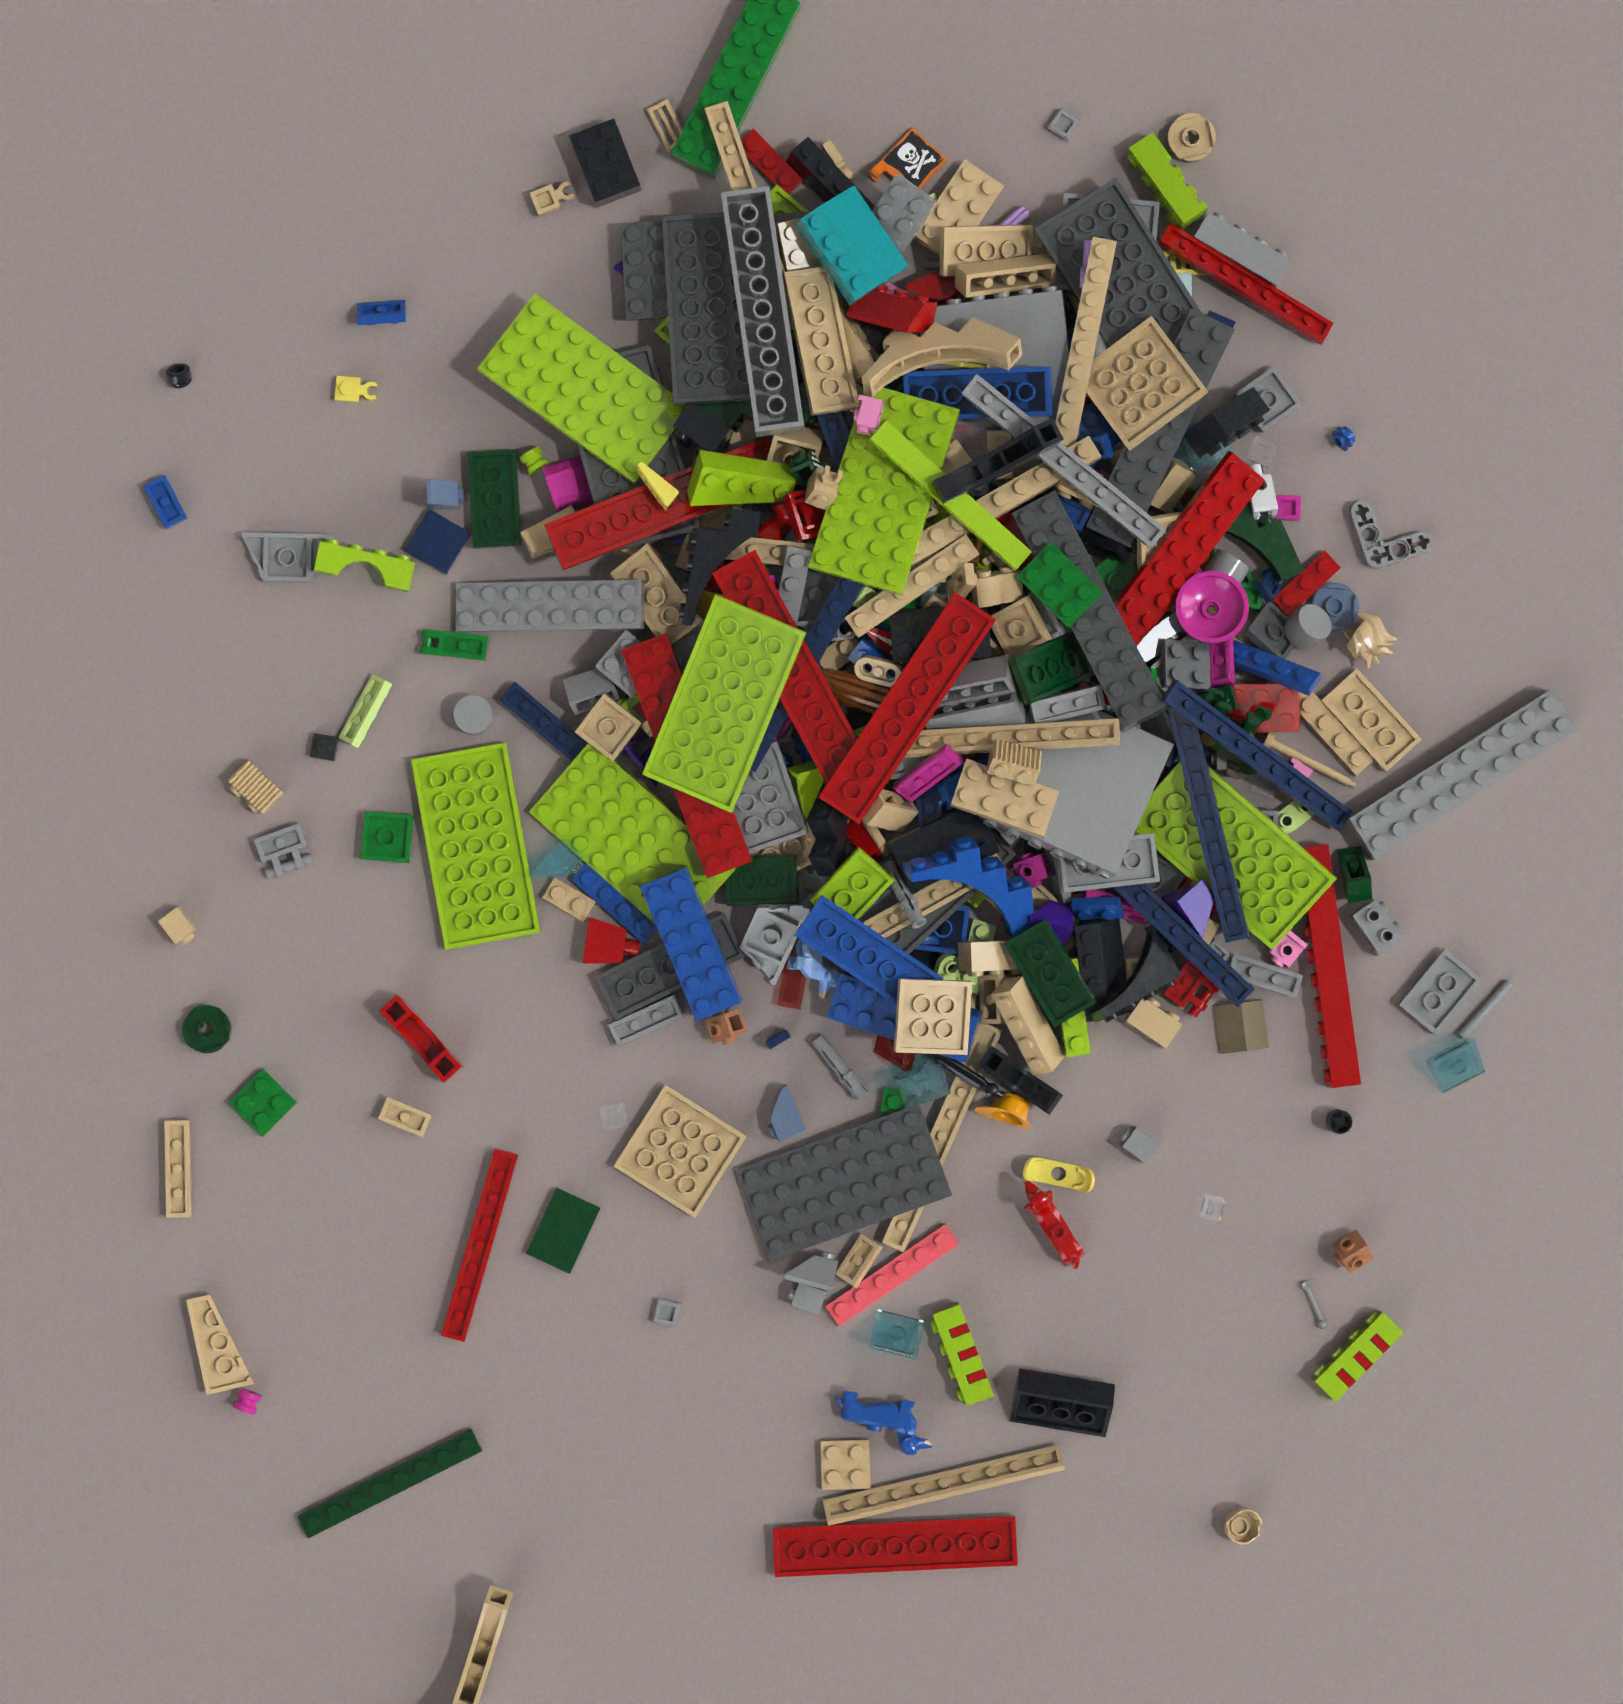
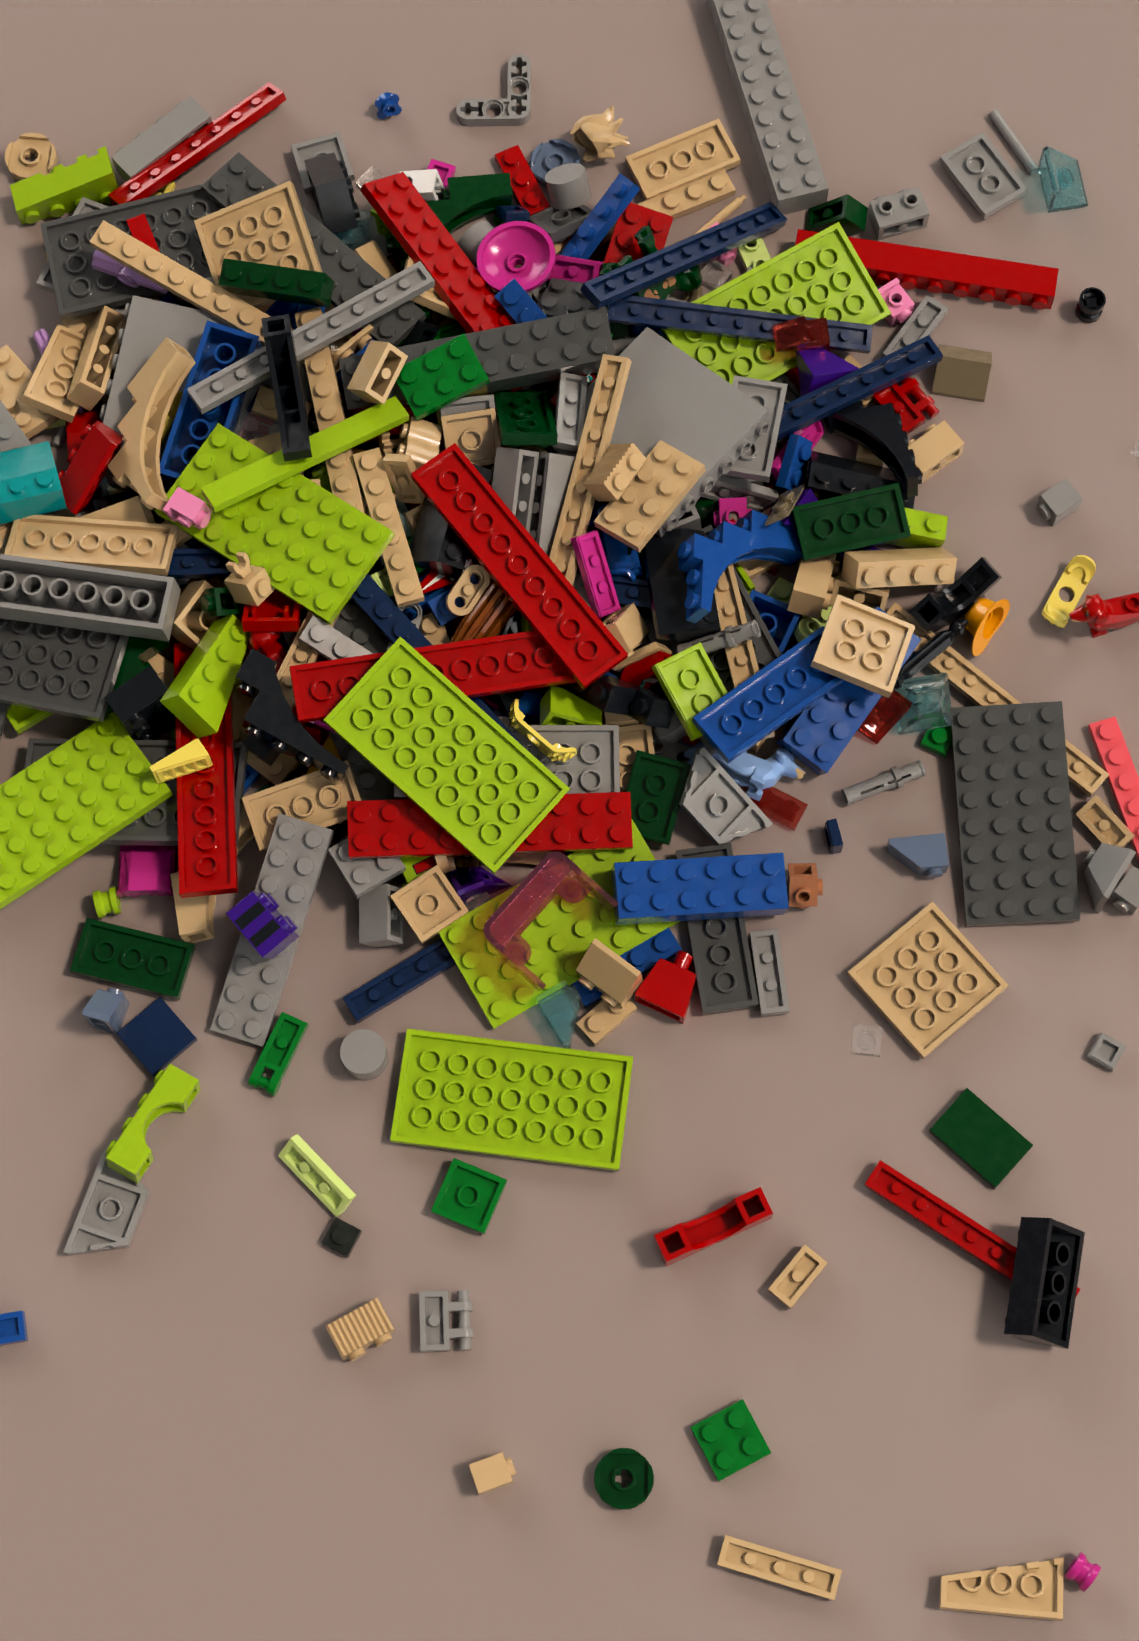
camera: 70 degrees left, 15 degrees down
(457, 1312) = (1044, 1282): none -> black slope
(542, 601) = (263, 924): none -> dark purple brick
(596, 892) = (608, 974): none -> tan slope
(601, 798) = (550, 877): none -> clear pink windscreen
(778, 750) = (554, 752): none -> light yellow piece
(1043, 530) = (377, 372): none -> tan brick
(1048, 912) = (784, 505): none -> dark tan piece
(1107, 411) = (276, 283): none -> dark green brick
(1131, 272) = (141, 230): none -> red sticker
(1163, 628) = (519, 303): none -> blue plate
(1214, 879) = (801, 334): none -> clear red slope

